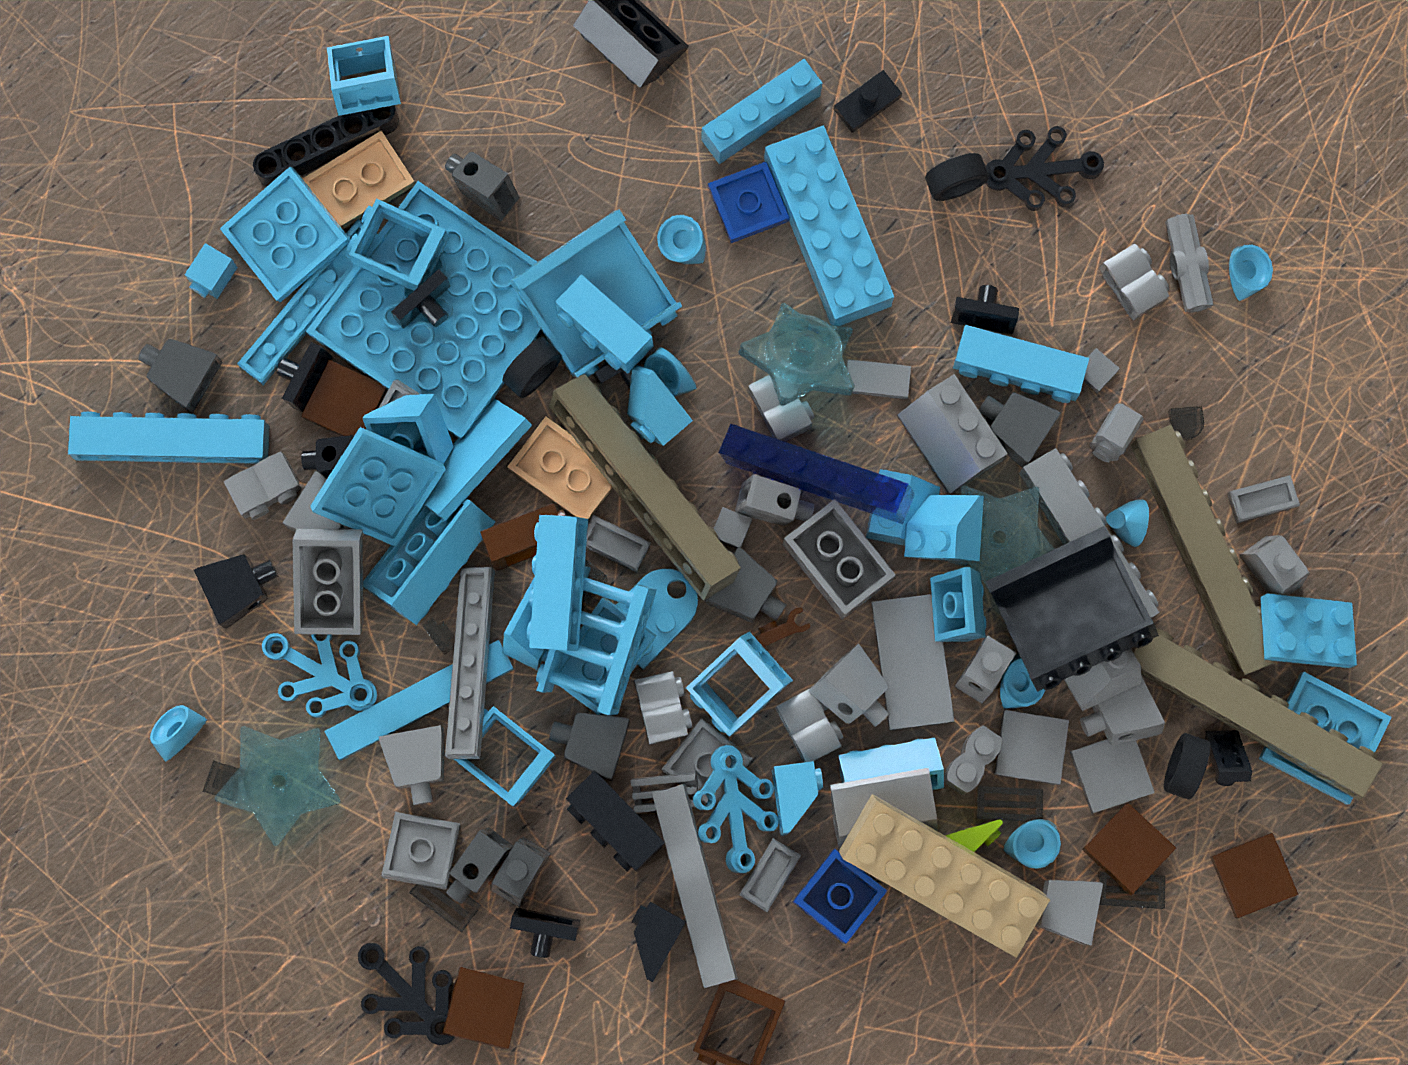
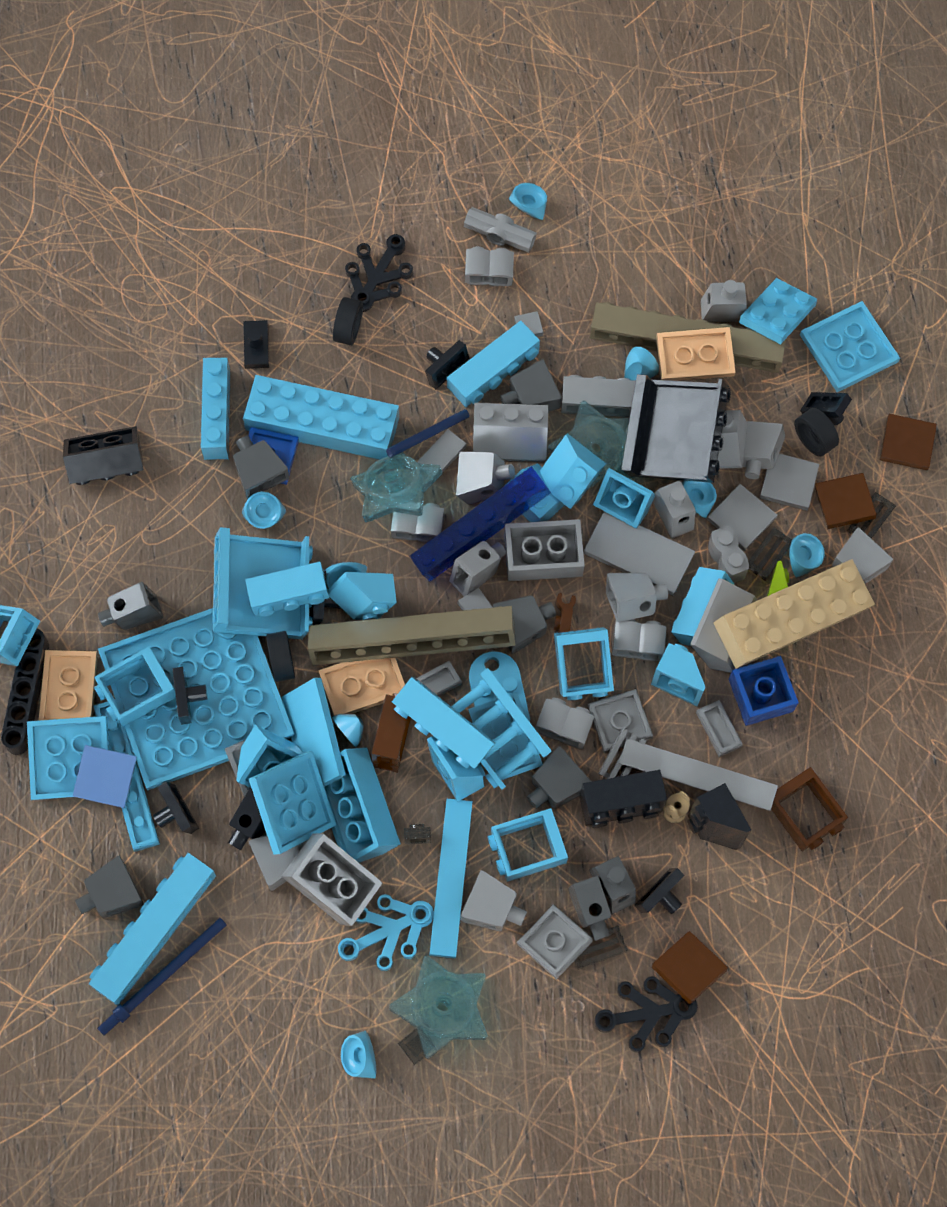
camera: 55 degrees left, 10 degrees down
(70, 468) = (122, 1012): none -> dark blue bar
(210, 272) = (56, 825): medium azure brick -> none
(235, 587) = (287, 949): black torso -> none
(263, 485) = (231, 885): light grey brick -> none
(288, 283) = (104, 776): none -> medium blue tile
(343, 400) = (211, 795): reddish brown tile -> none
(470, 663) = (451, 824): light grey tile -> none
(504, 489) = (351, 726): none -> medium azure piece
(642, 894) = (676, 815): none -> tan piece
(721, 199) = (258, 466): none -> dark grey torso
(733, 805) = (635, 706): medium azure plant -> none
(877, 437) = (481, 475): none -> torso
(888, 348) = (427, 433): none -> dark blue bar
(1116, 433) = (579, 336): light grey brick -> none
(1182, 574) = (695, 354): none -> light nougat plate
(1187, 421) = (597, 293): clear smoke tile -> none
(1258, 716) = (817, 369): dark tan brick -> none
(1263, 499) = (677, 285): light grey tile -> none

